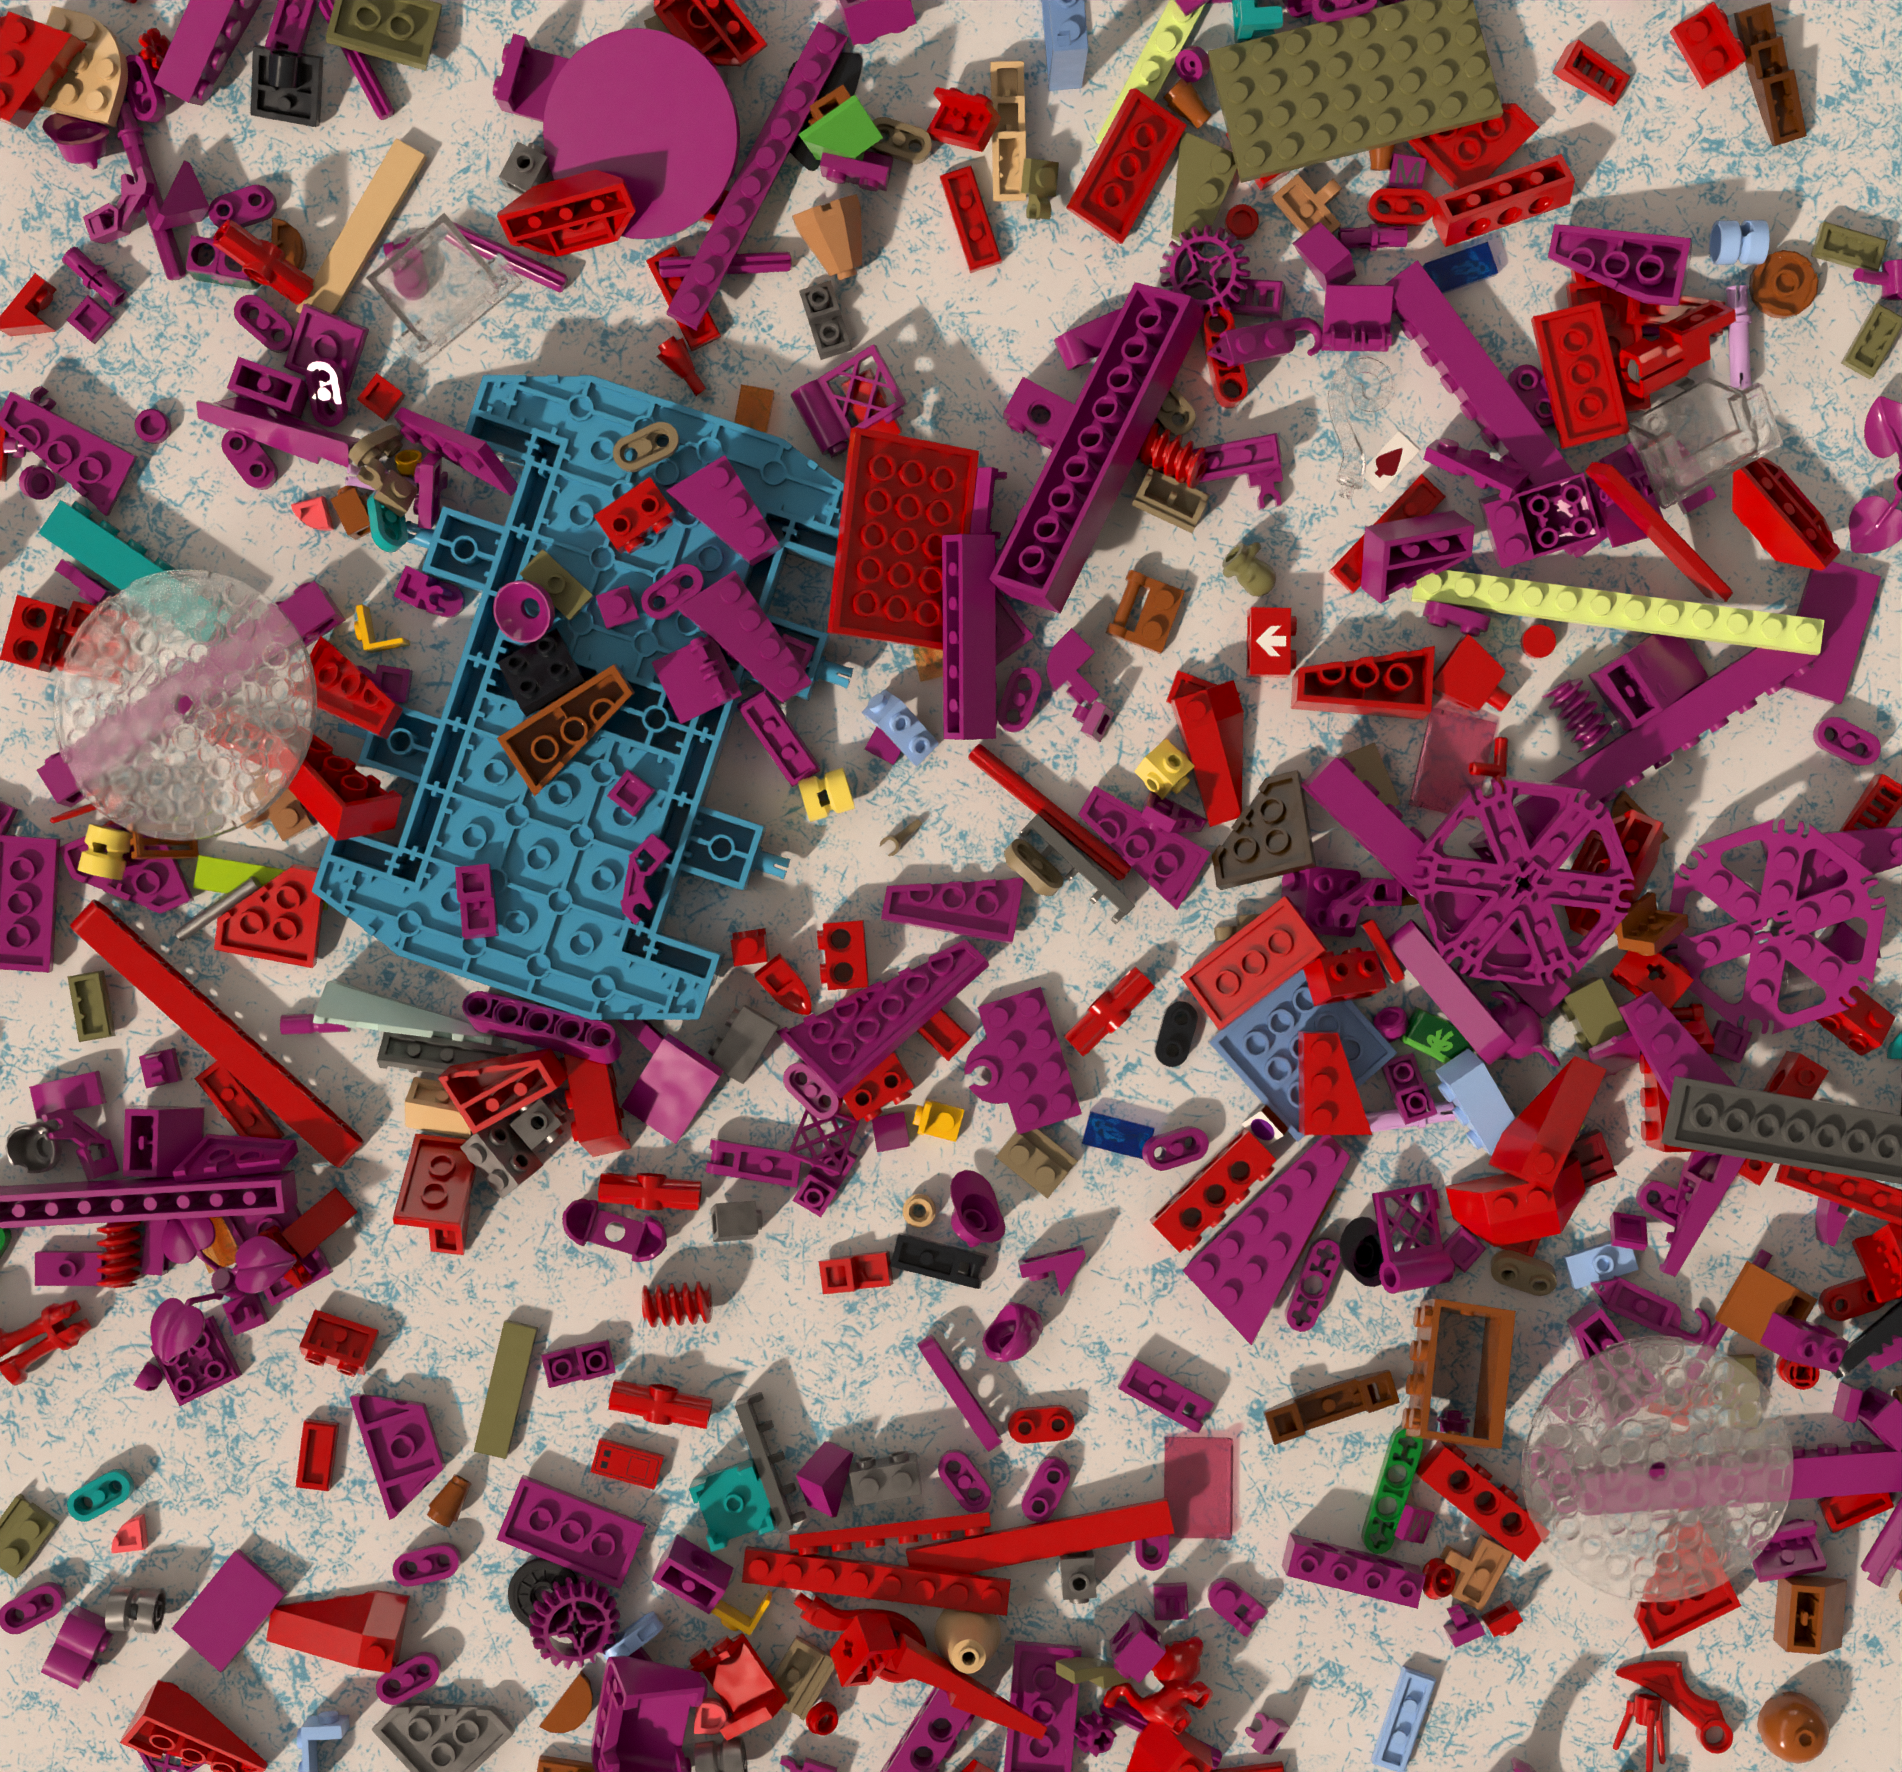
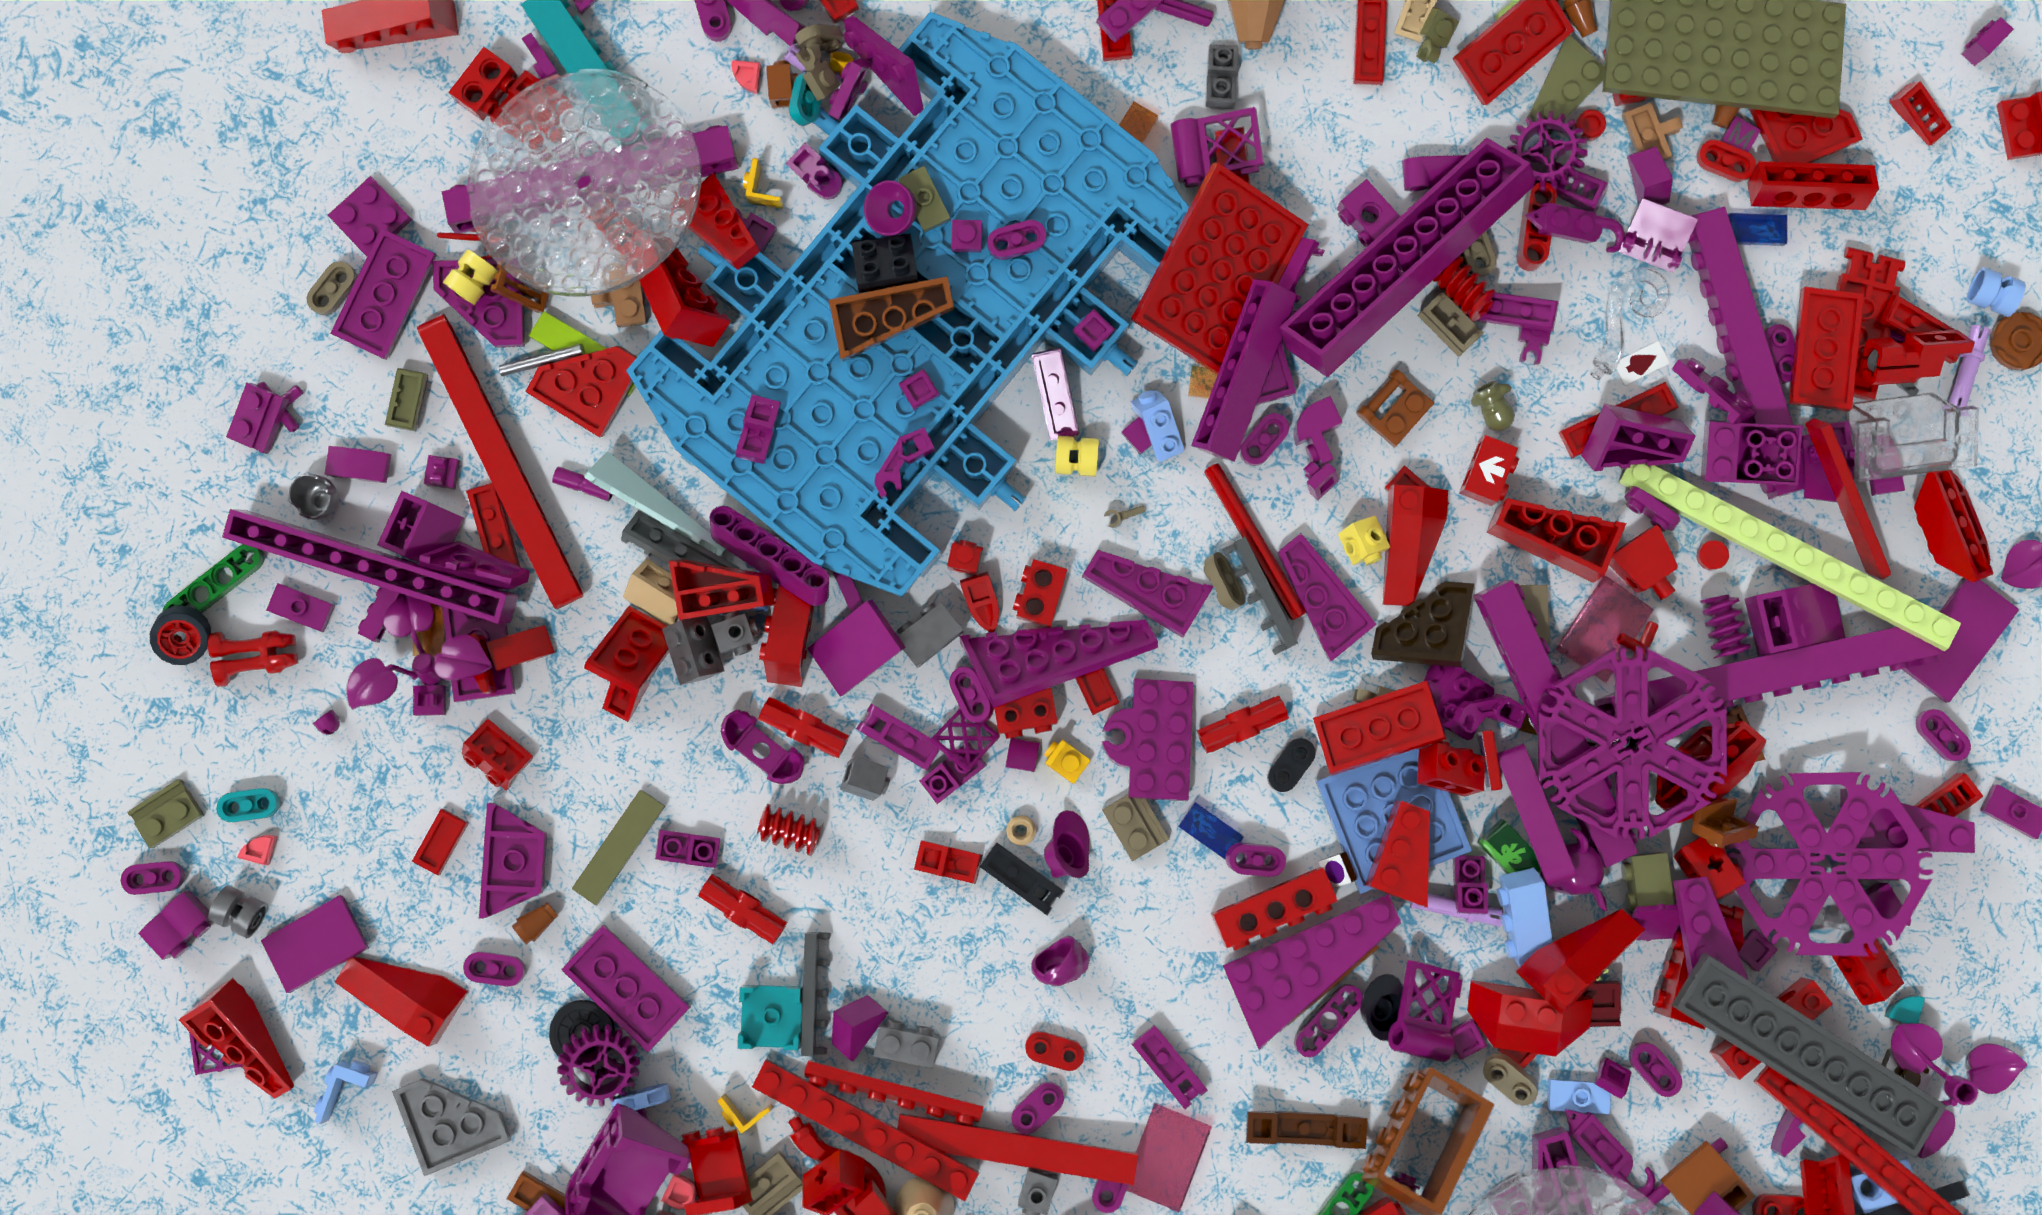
camera: 20 degrees right, 5 degrees down
(82, 1134) = (358, 503): magenta piece -> none
(119, 1254) = (346, 608): red piece -> none
(201, 1367) = (373, 727): magenta tile -> none
(410, 1678) = (441, 1059): magenta plate -> none
(571, 1708) = (566, 1139): dark orange tile -> none
(627, 1463) = (694, 949): red tile -> none
(636, 517) = (1010, 168): red brick -> none
(645, 443) = (1039, 112): dark tan plate -> none
(677, 358) = (1089, 60): red cone -> none
(693, 1574) = (714, 1062): magenta brick -> none
(696, 678) = (1009, 317): magenta hinge -> none
(725, 508) = (1087, 190): magenta wedge -> none
(742, 629) = (1061, 289): magenta wing -> none
(960, 1392) = (997, 997): magenta beam -> none
(963, 1480) = (972, 1073): magenta plate -> none
(1063, 1262) = (1125, 920): magenta slope -> none
(1170, 816) = (1349, 576): magenta wing -> none
(1373, 237) = (1695, 177): magenta pin -> none
(1391, 1023) = (1476, 824): magenta tile -> none
(1633, 263) = (1902, 273): magenta wedge -> none
(1699, 1192) = (1685, 1066): magenta wedge -> none

